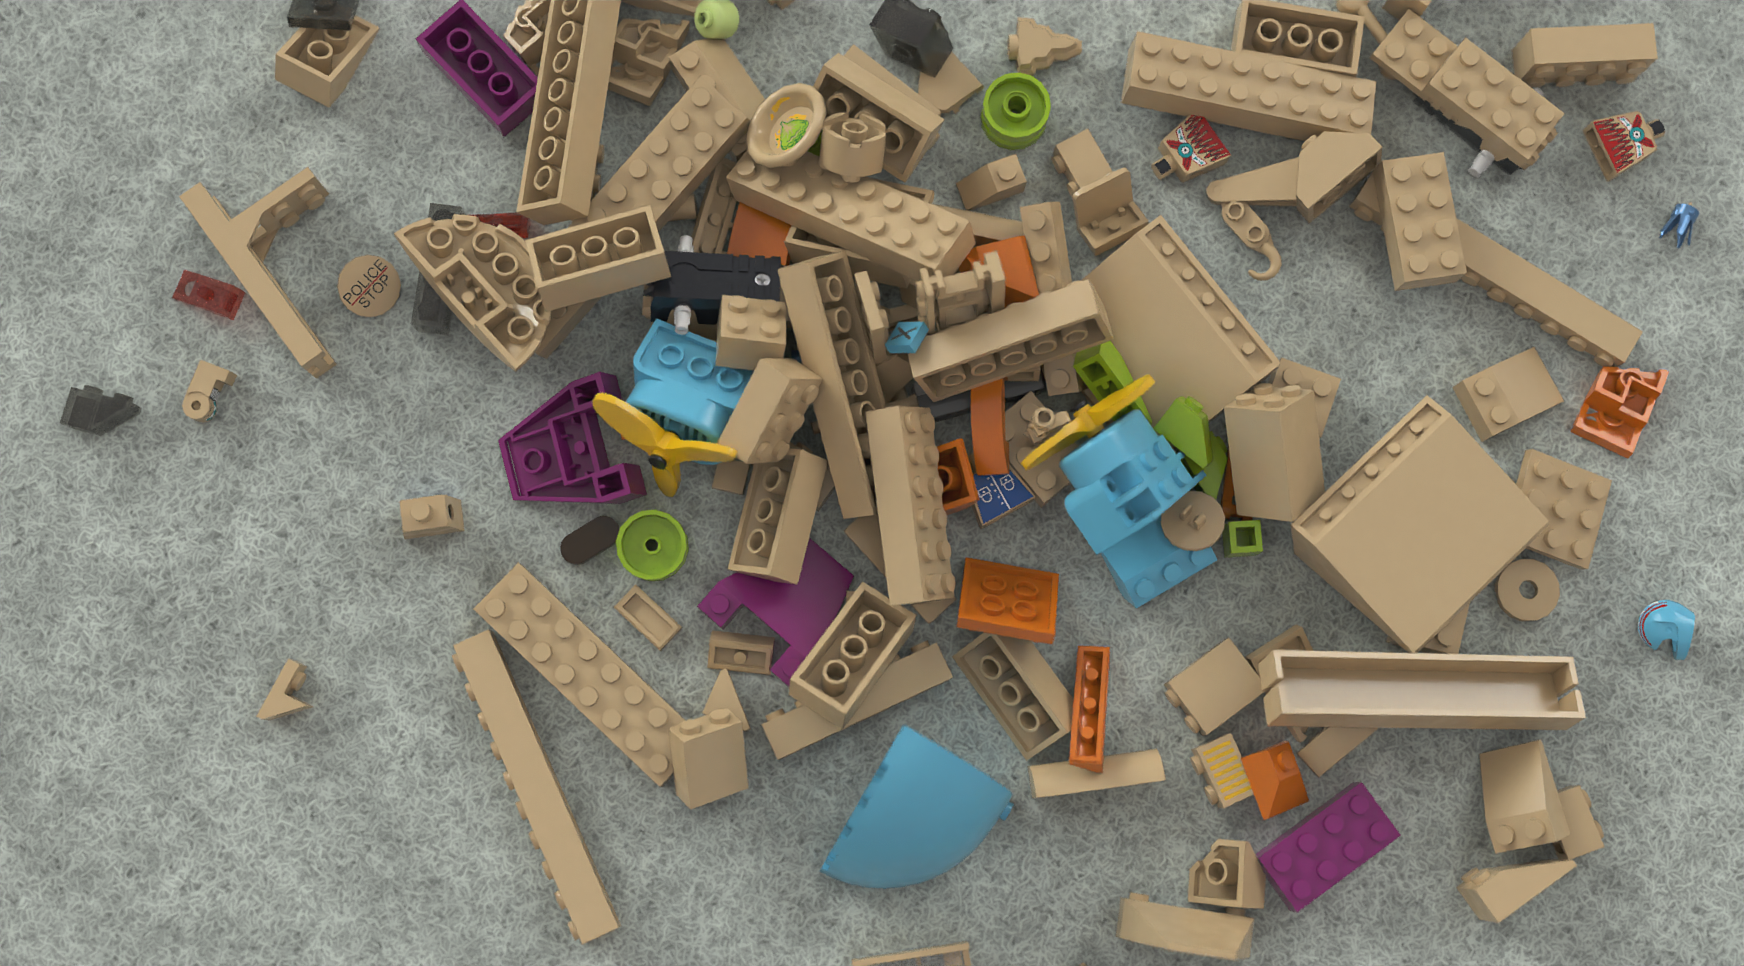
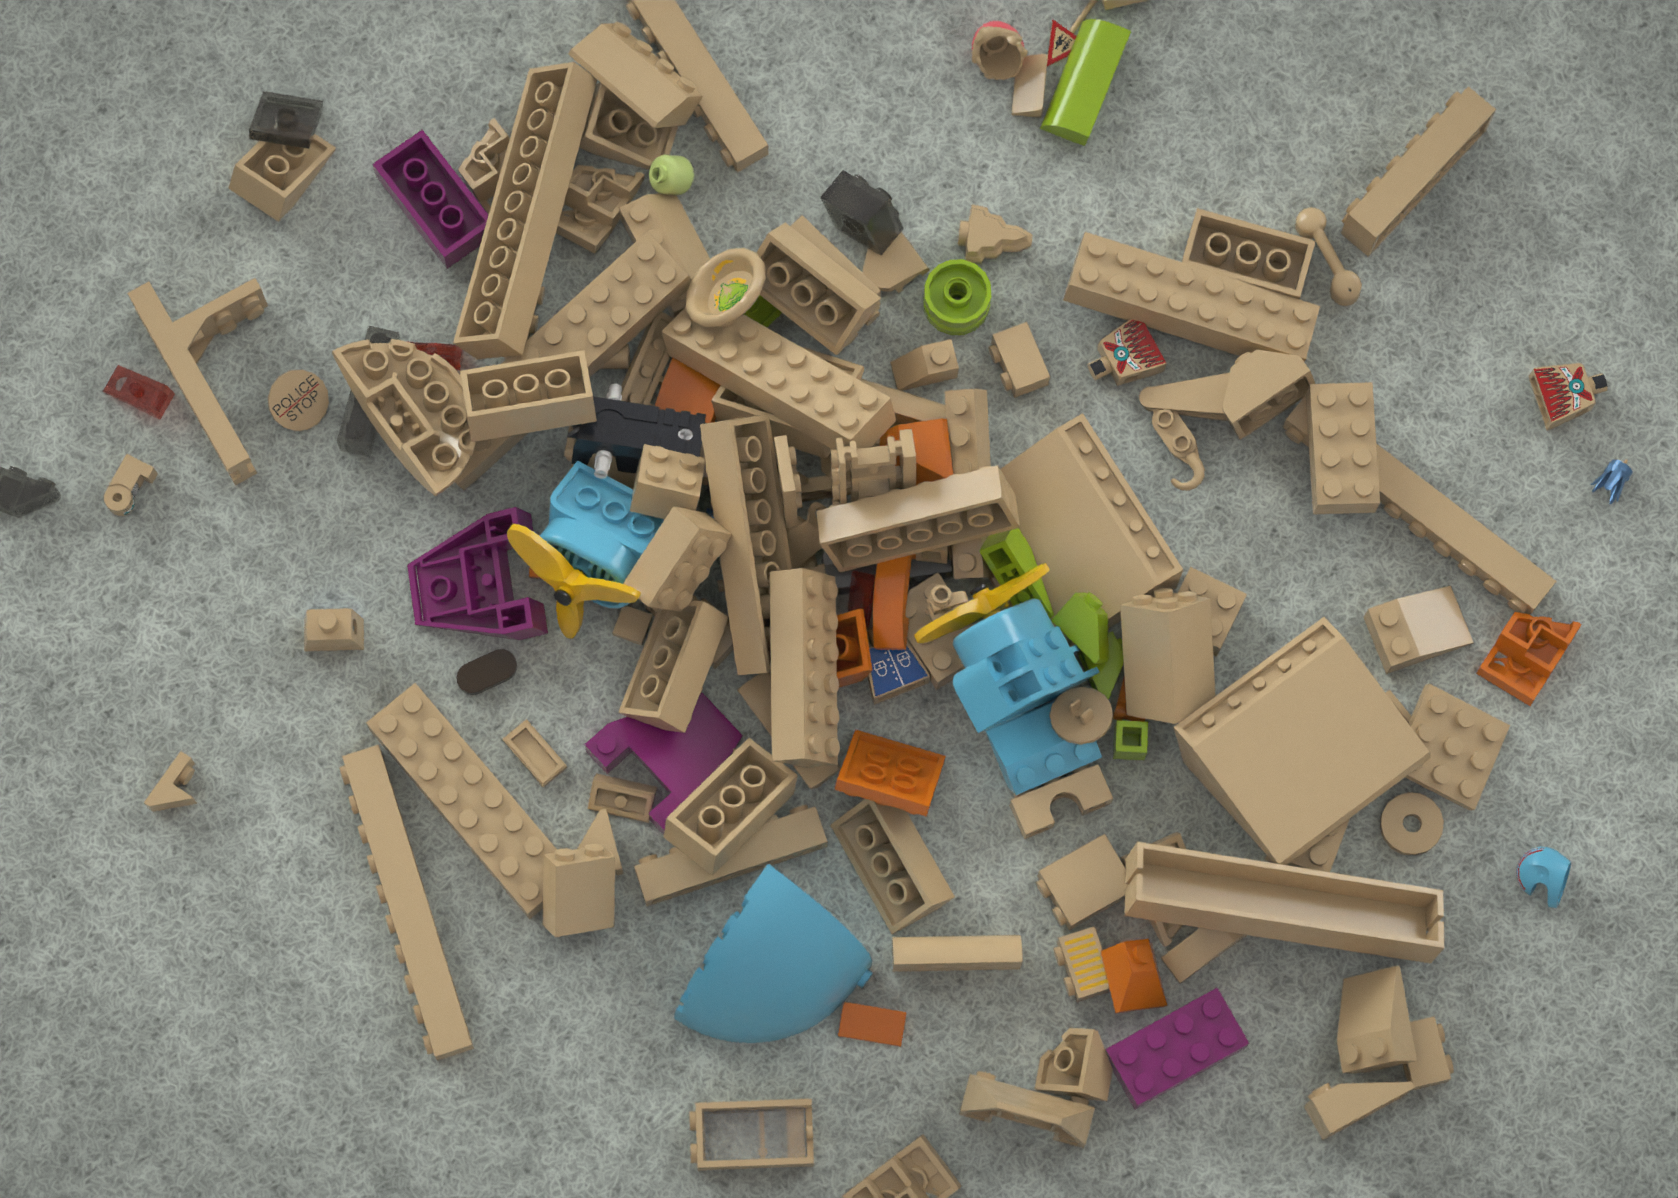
camera: 10 degrees right, 5 degrees down
(655, 564) = (553, 700): lime wheel -> none
(852, 146) = (787, 314): tan brick -> none
(906, 337) = (818, 504): medium azure tile -> none
(956, 421) = (862, 594): none -> clear red slope
(1018, 855) = (872, 1024): none -> orange slope
(1090, 708) = (959, 886): orange slope -> none
(1107, 212) = (1035, 404): tan bracket -> none
(1202, 591) = (1084, 787): none -> tan arch
(1470, 94) = (1412, 328): tan piece -> none
(1584, 54) = (1533, 301): tan brick -> none

